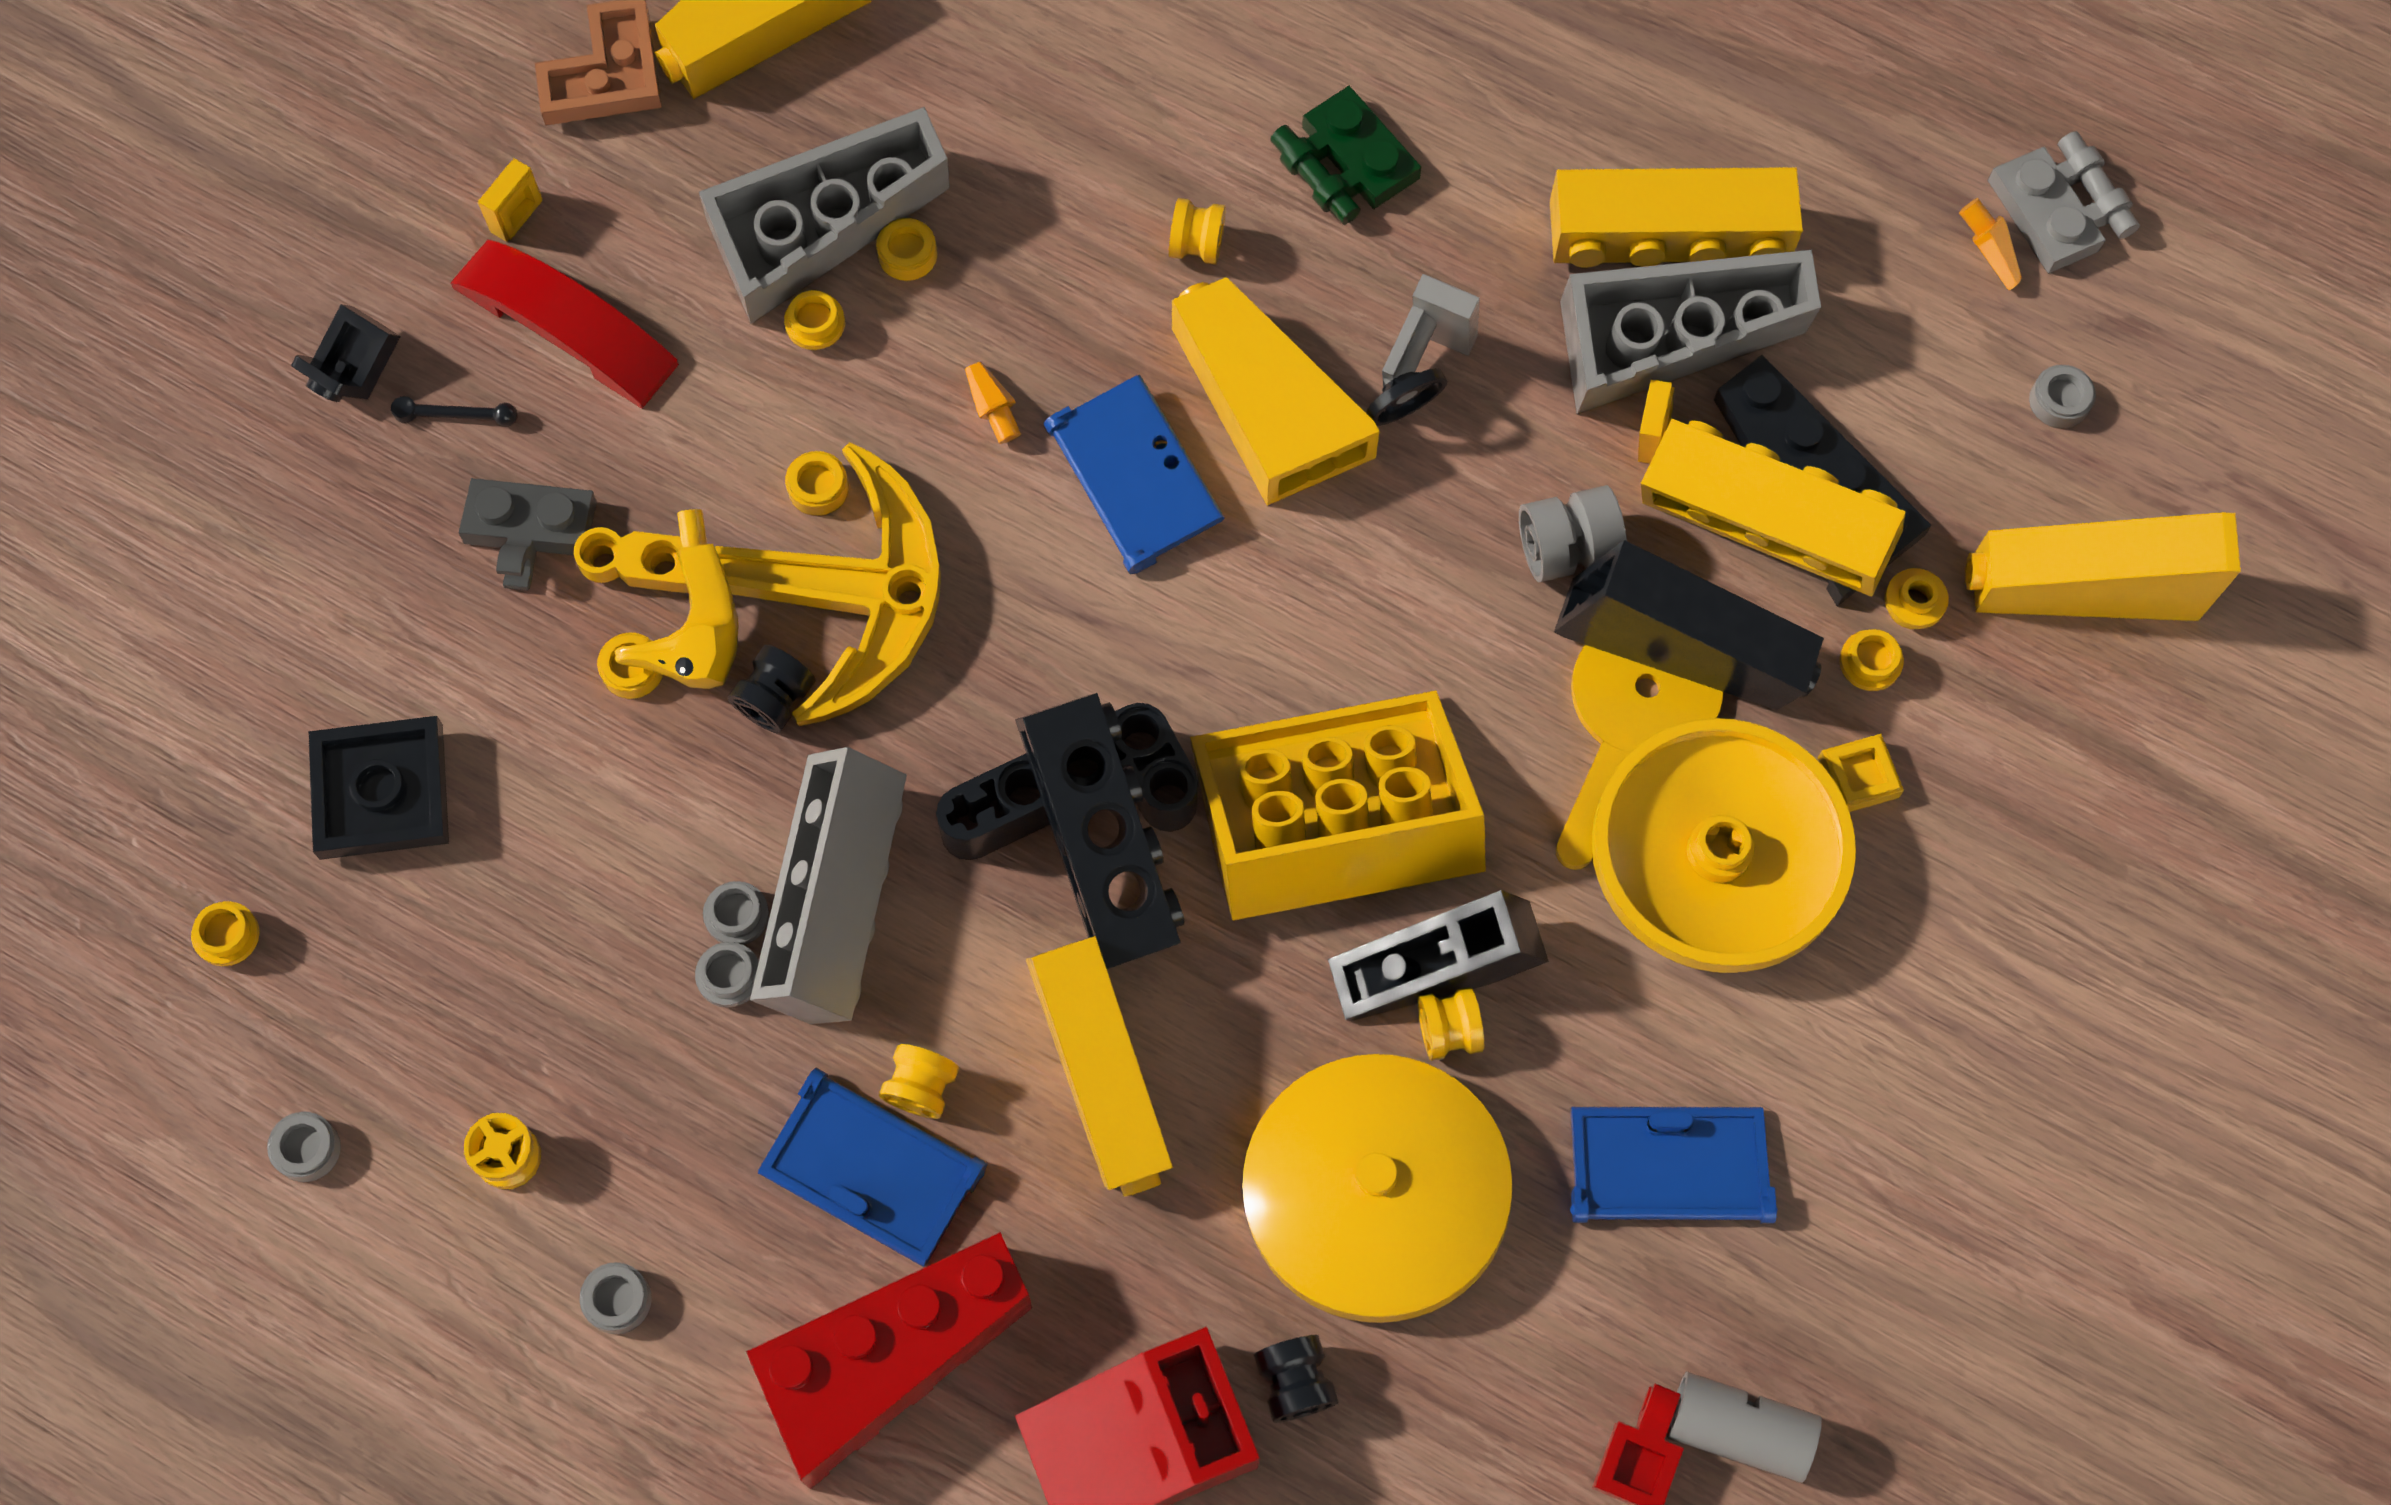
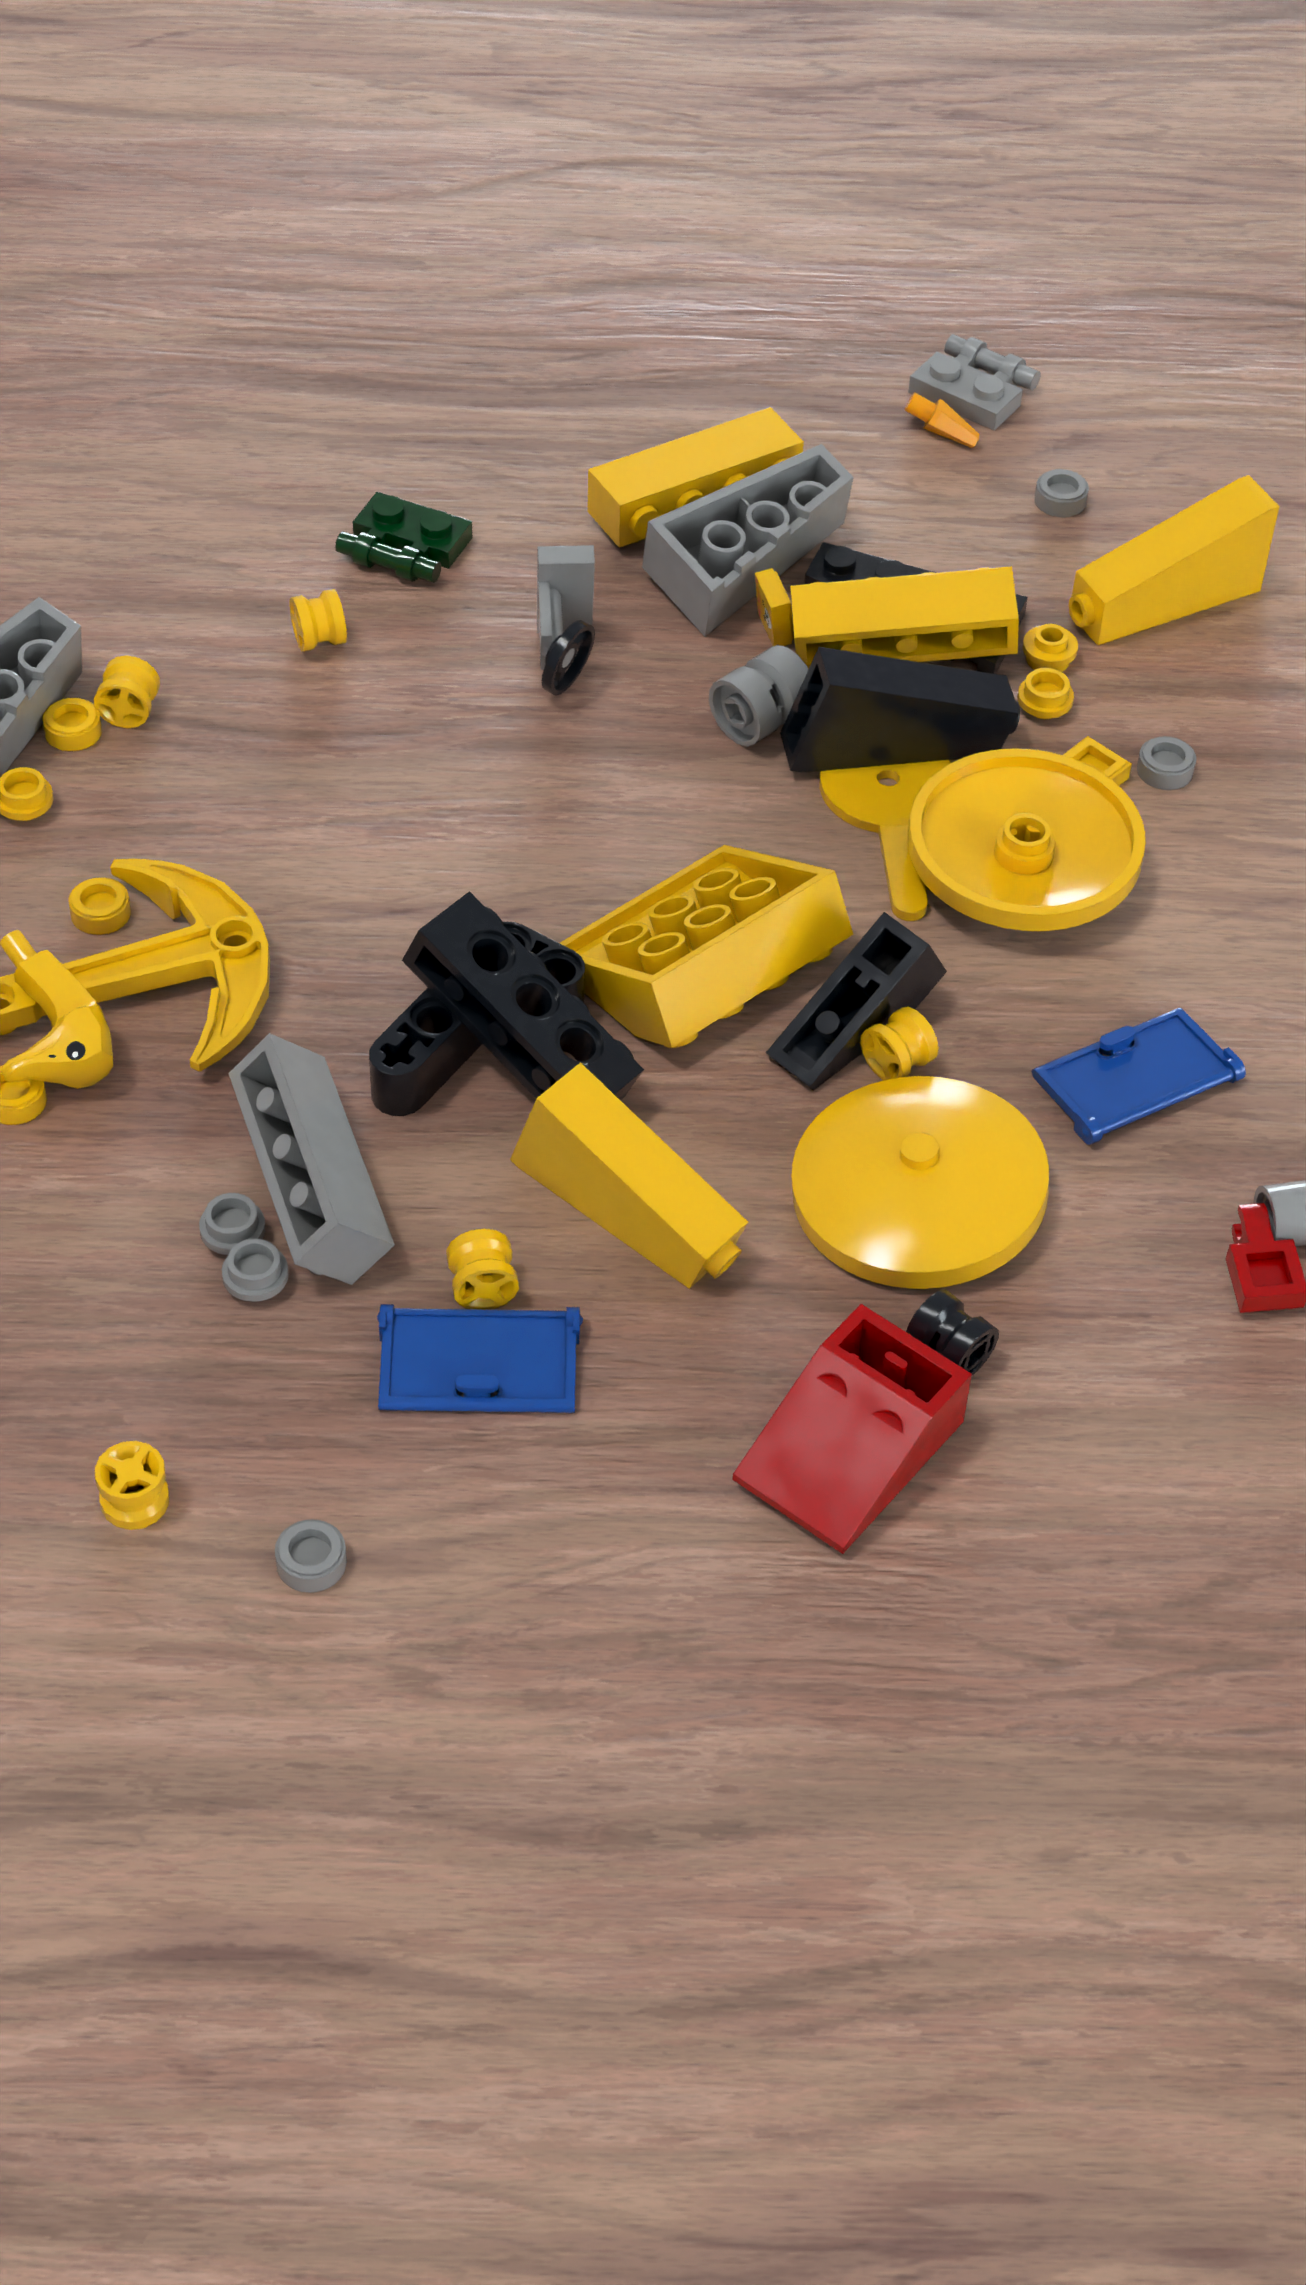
camera: 30 degrees left, 20 degrees down
(771, 688) = (159, 1051): black wheel -> none
(879, 1354) = (584, 1475): red wedge -> none
(969, 240) = (127, 691): none -> yellow wheel
(992, 402) = (219, 794): light orange bar -> none
(1140, 491) = (391, 807): blue door -> none
(1270, 396) = (451, 700): yellow slope -> none
(1945, 802) = (1166, 763): none -> light grey tile

